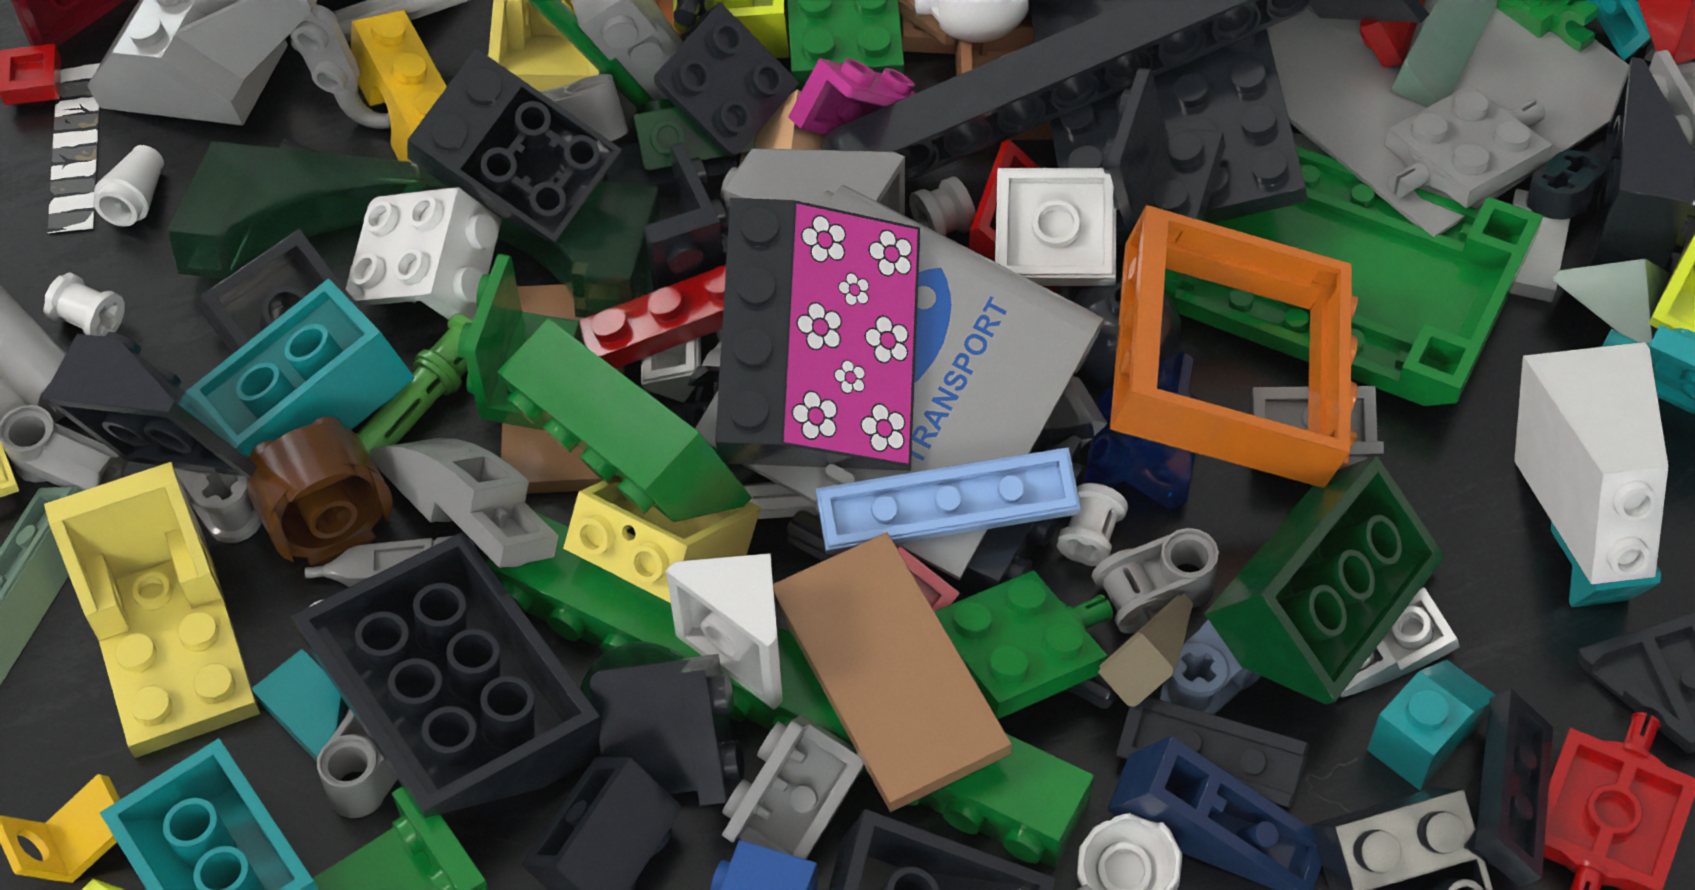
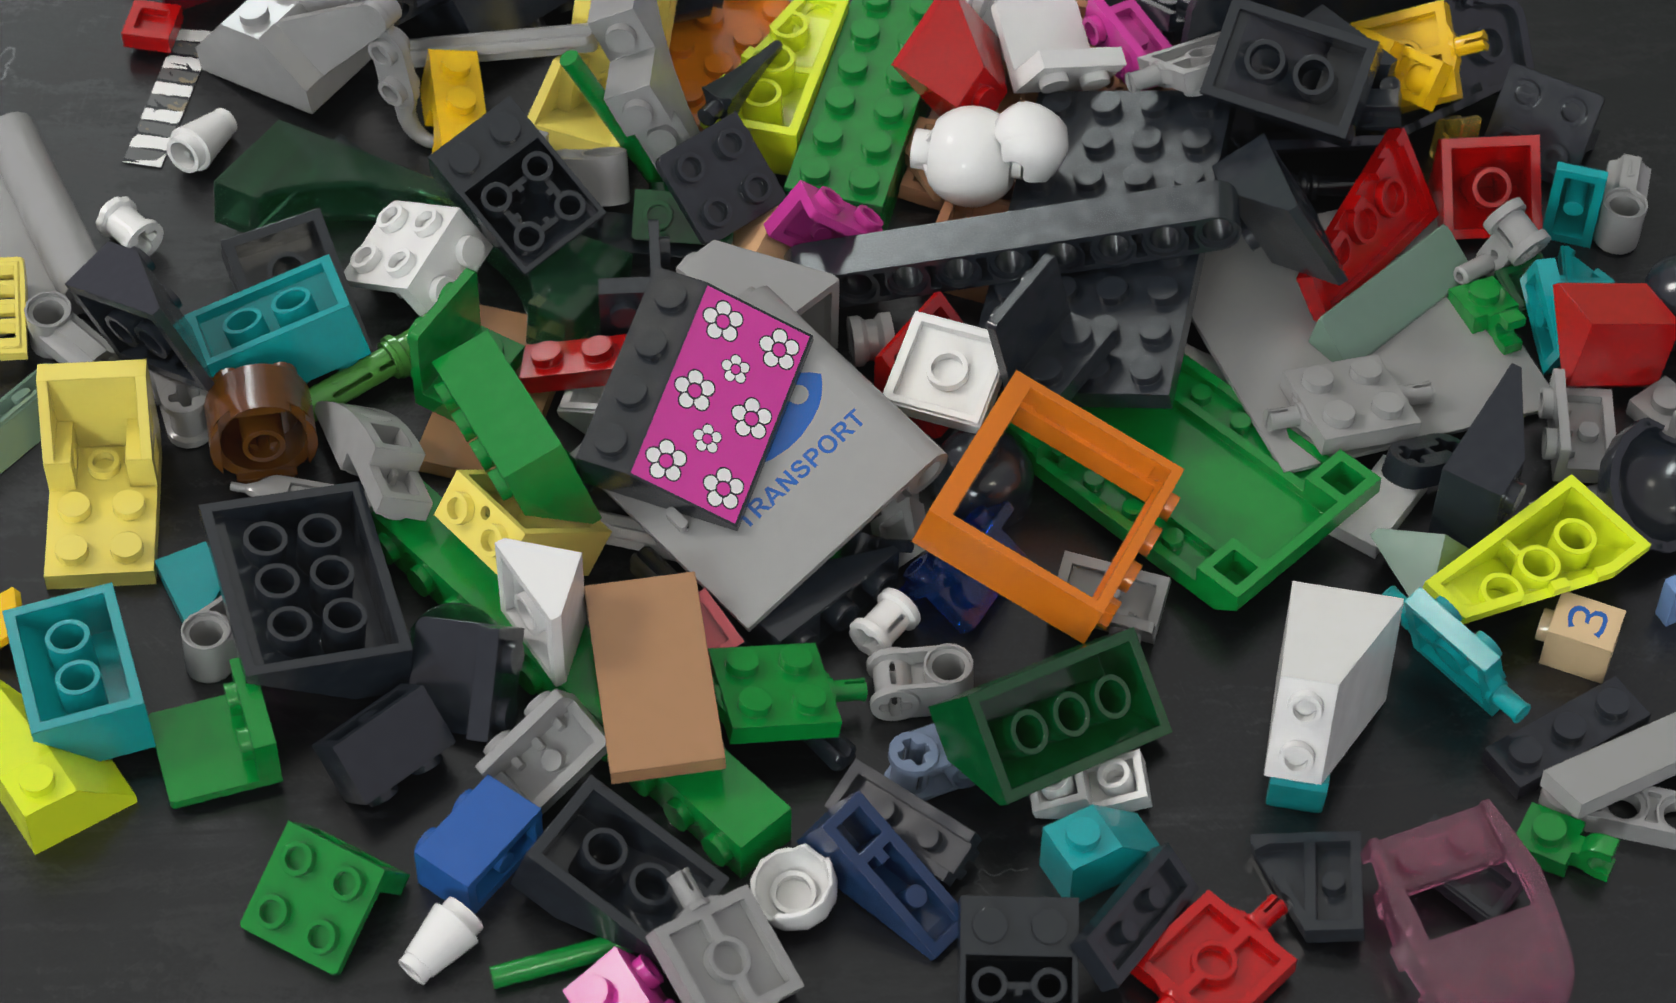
camera: 15 degrees right, 5 degrees down
(949, 500) = (760, 562): light blue tile -> none
(1149, 653) = (875, 724): dark tan slope -> none

